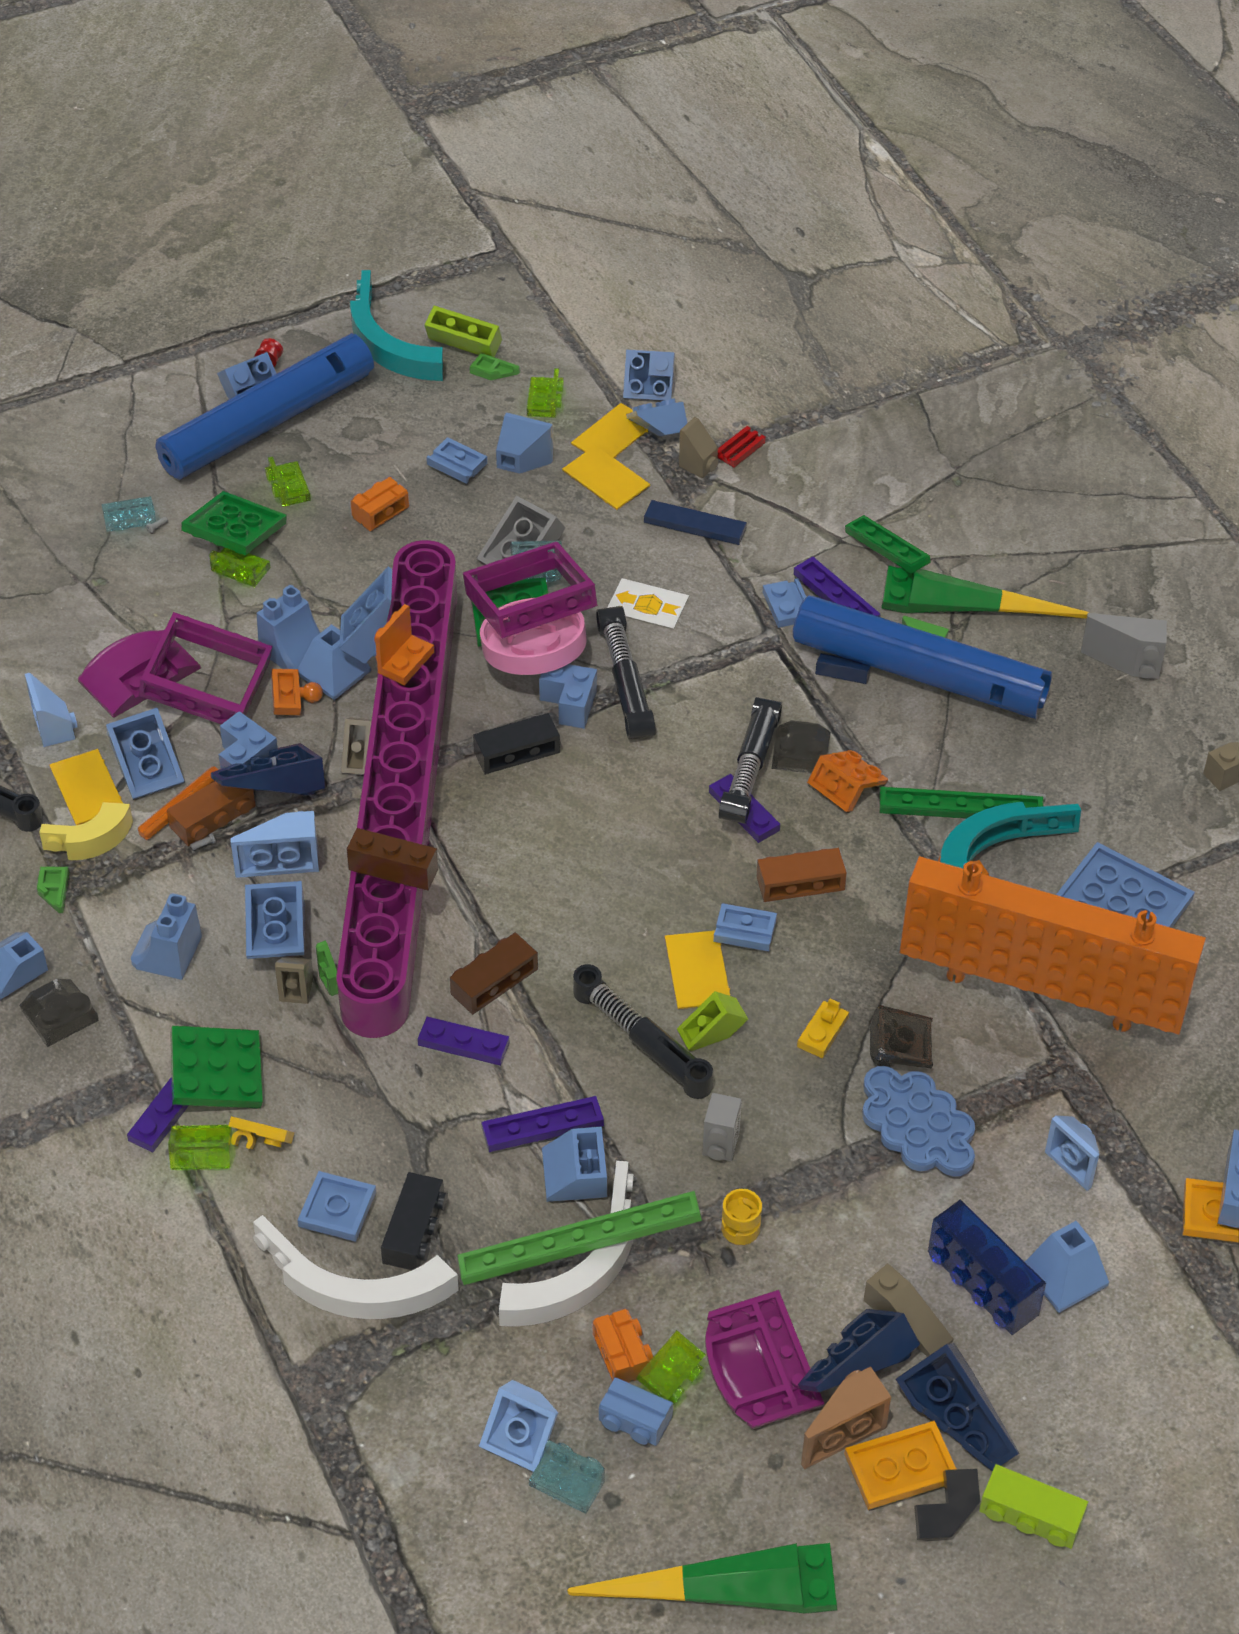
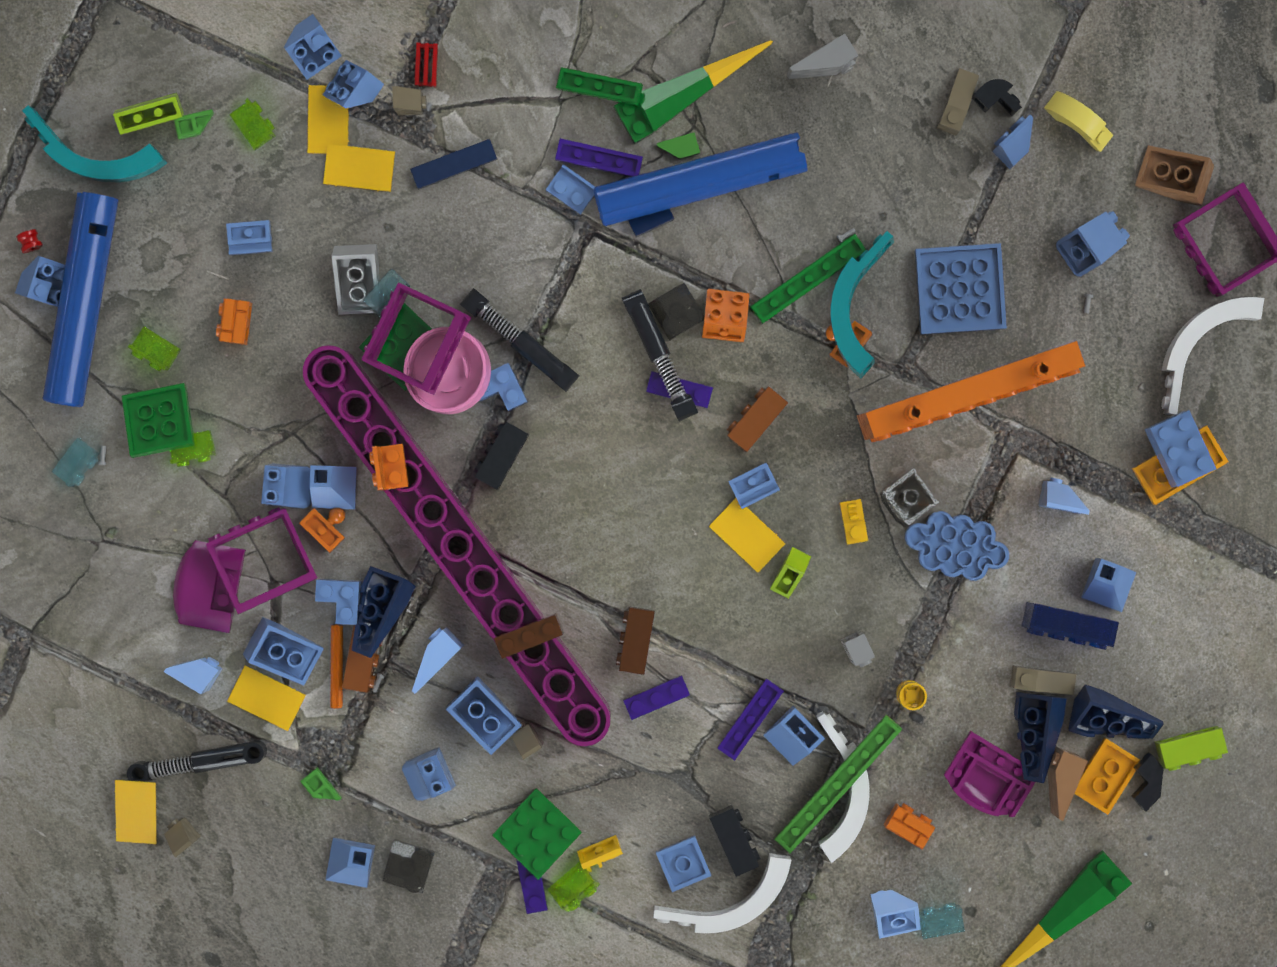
camera: 35 degrees left, 40 degrees up
(91, 838) = (314, 732): light yellow arch -> none
(326, 968) = (542, 720): bright green tile -> none
(355, 745) = (405, 537): dark tan slope -> none
(365, 617) = (339, 455): medium blue slope -> none
(524, 444) = (286, 194): medium blue slope -> none
(635, 1412) = (947, 858): medium blue brick -> none
(645, 1033) = (758, 611): black piece -> none
(649, 602) = (480, 261): white sticker -> none
(672, 1367) = (949, 821): clear neon green bracket -> none

